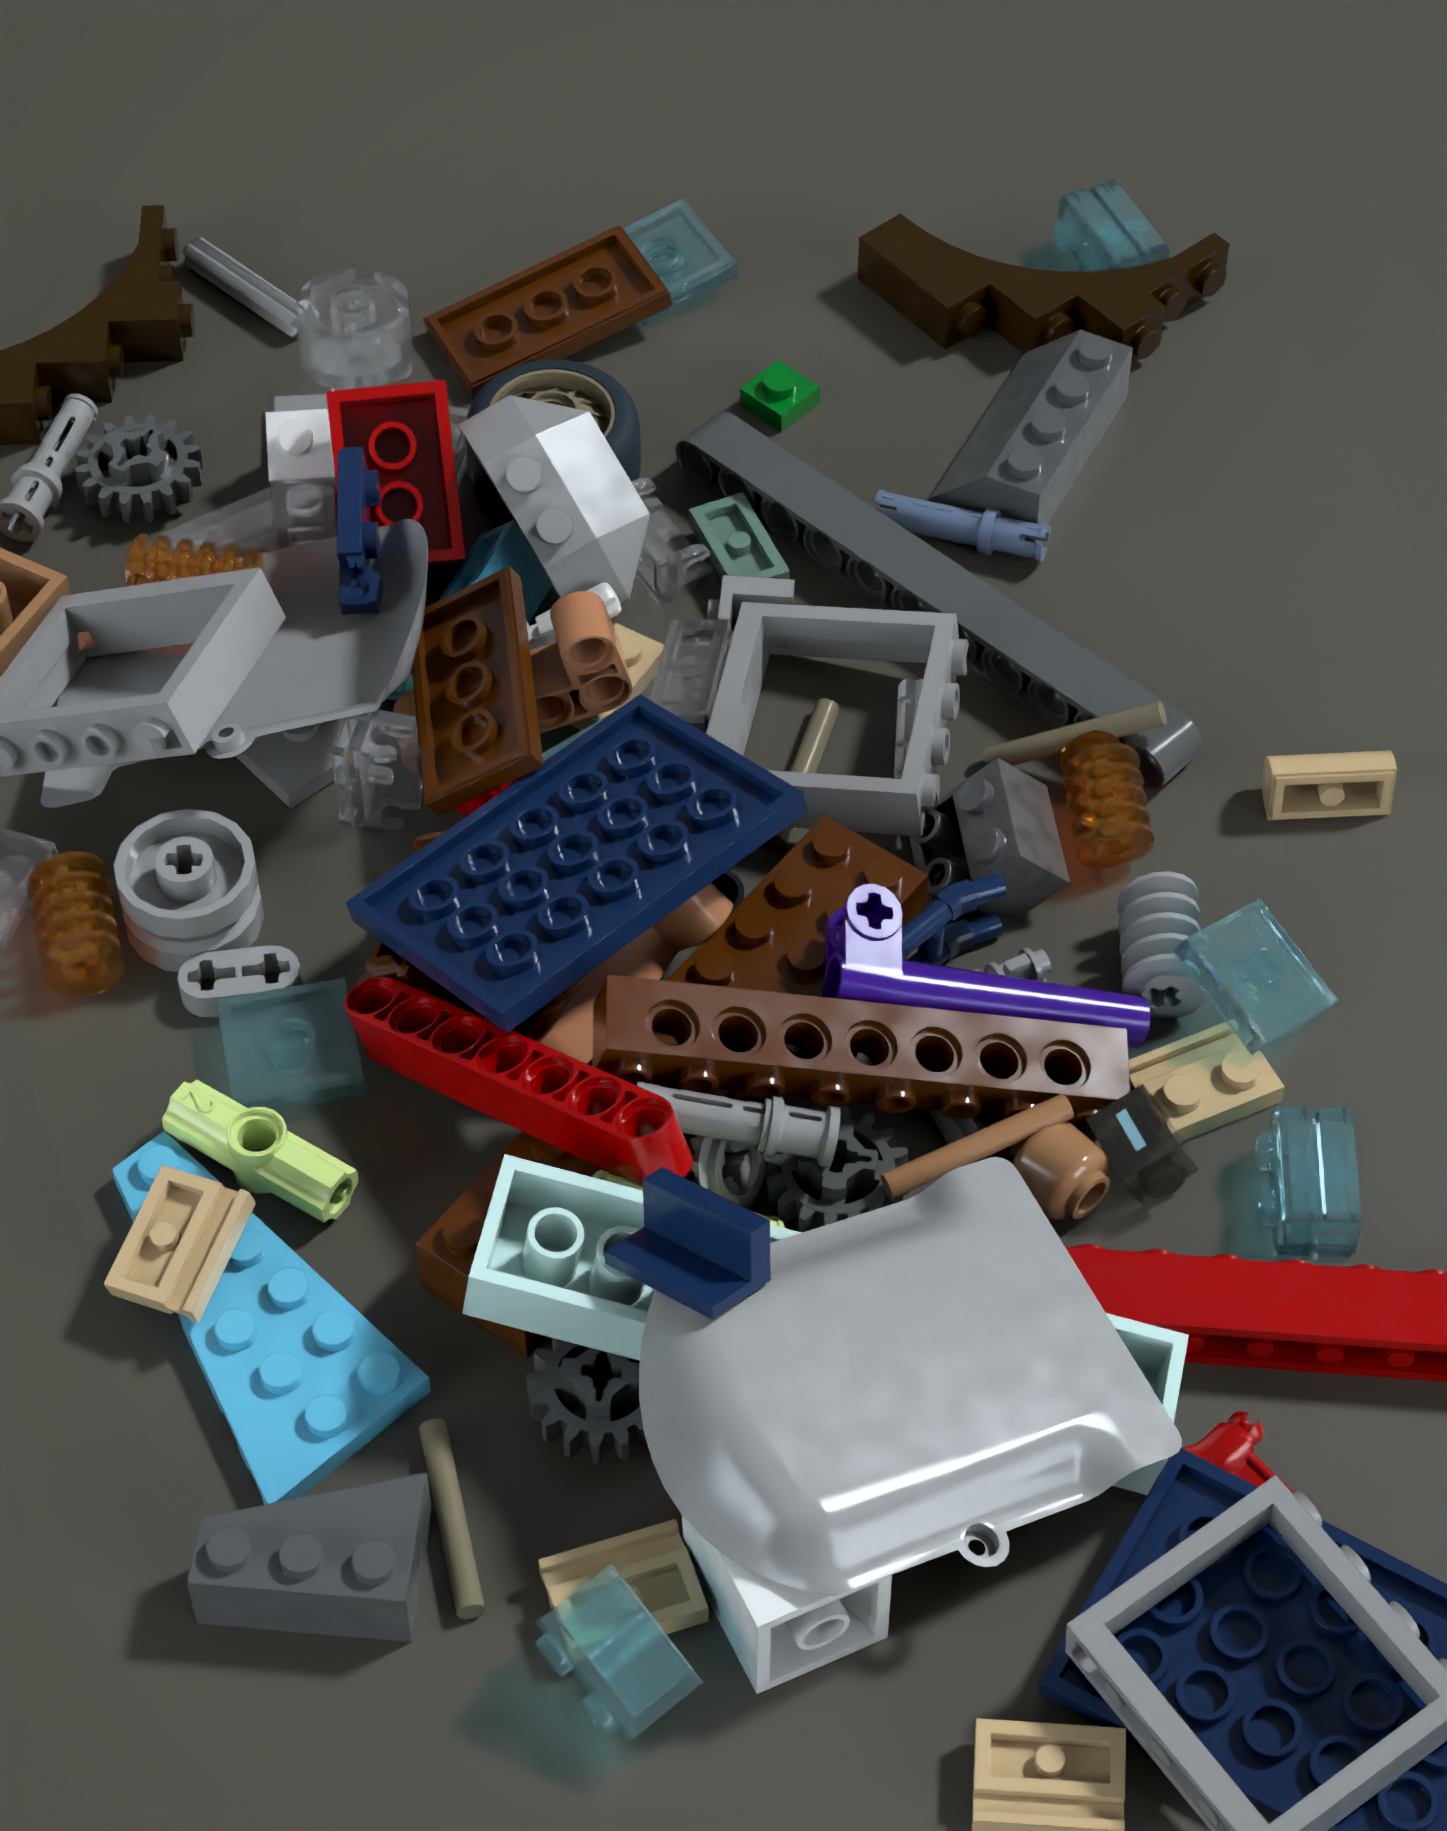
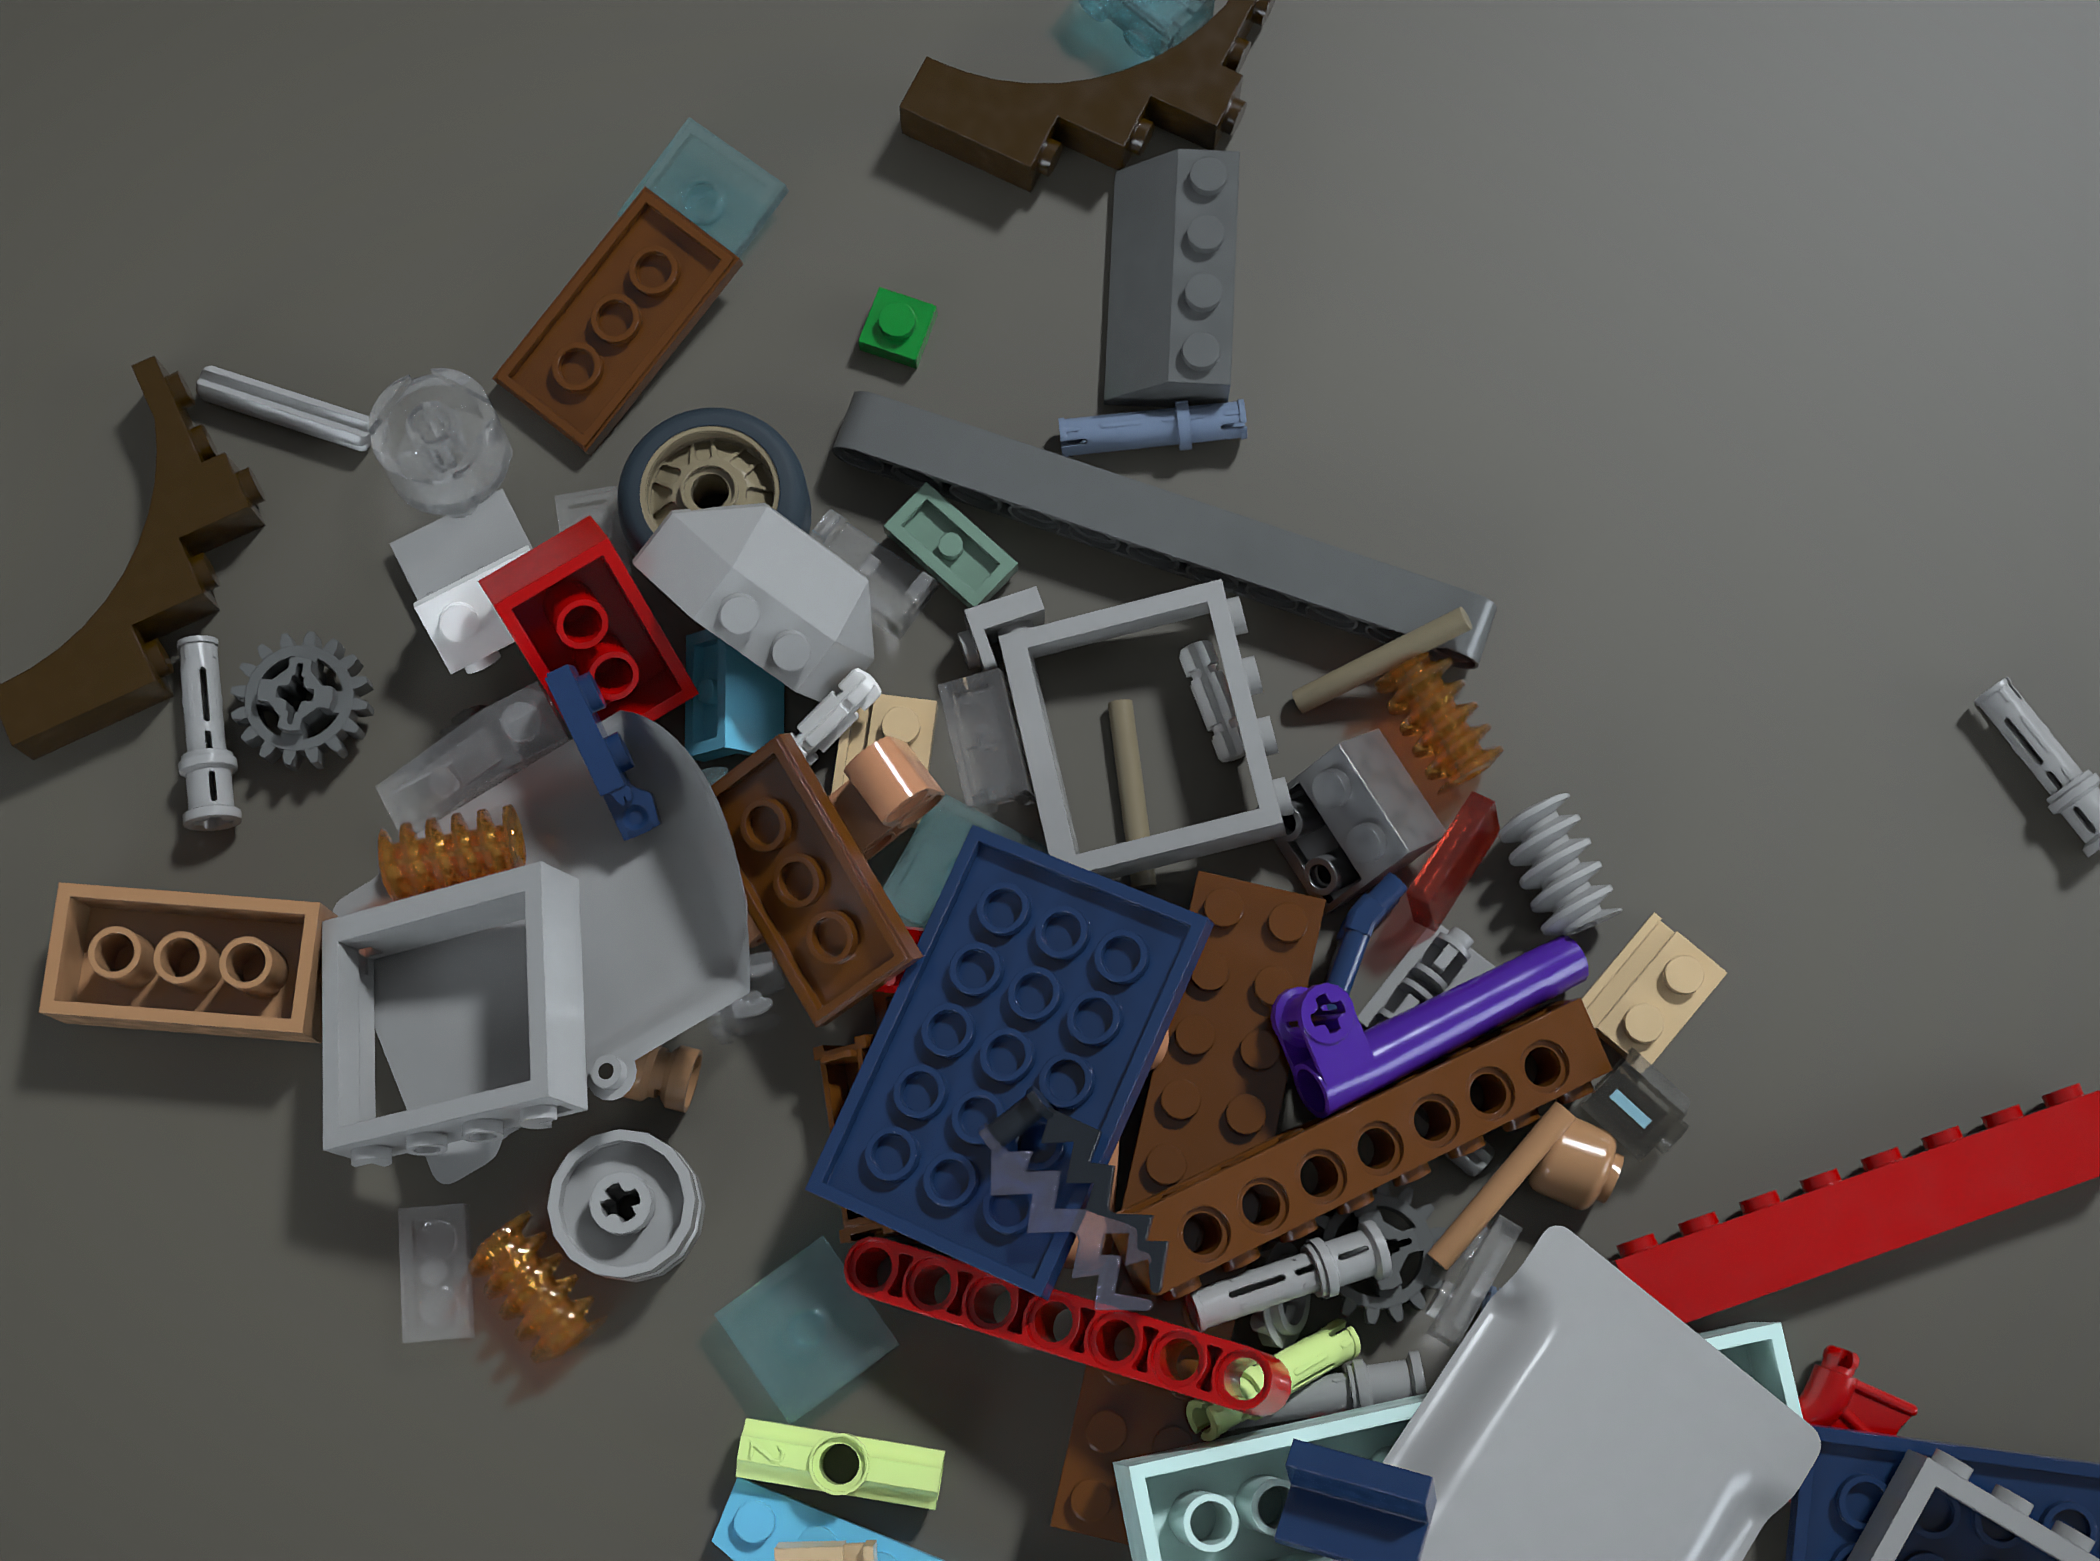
camera: 25 degrees left, 25 degrees up
(235, 974) = (711, 1258): light grey beam -> none
(282, 818) = (667, 1075): none -> medium nougat wheel
(528, 916) = (1089, 1224): none -> piece
(1064, 905) = (1453, 861): none -> clear red tile
(1255, 976) = (1662, 873): clear light blue plate -> none
(1311, 1181) = (1793, 1070): clear light blue brick -> none
(1328, 784) = (1628, 602): tan brick -> none

